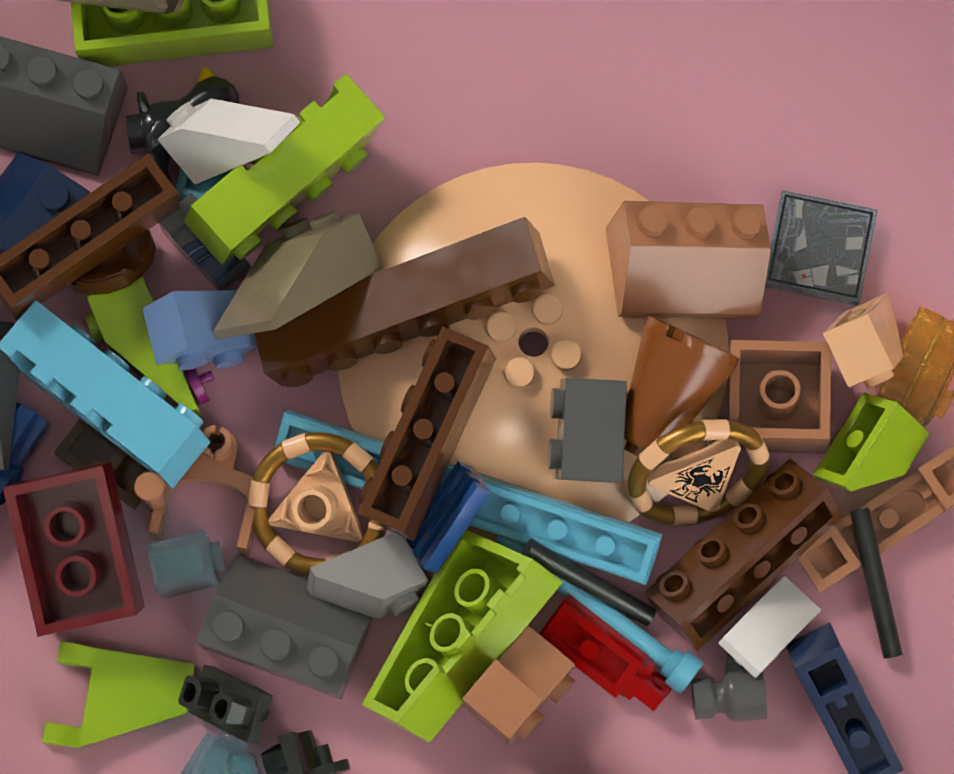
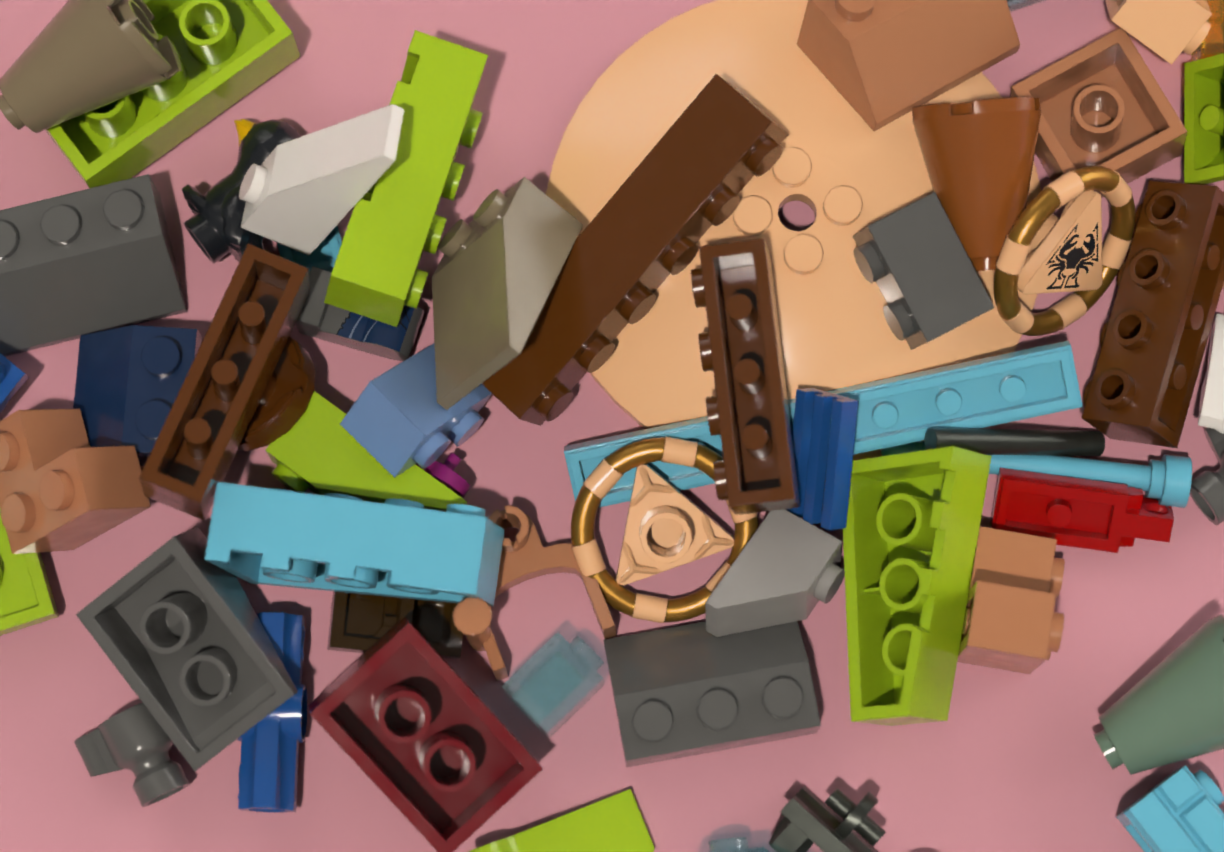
camera: 30 degrees left, 0 degrees up
(226, 702) = (699, 809): pearl dark grey hips -> none

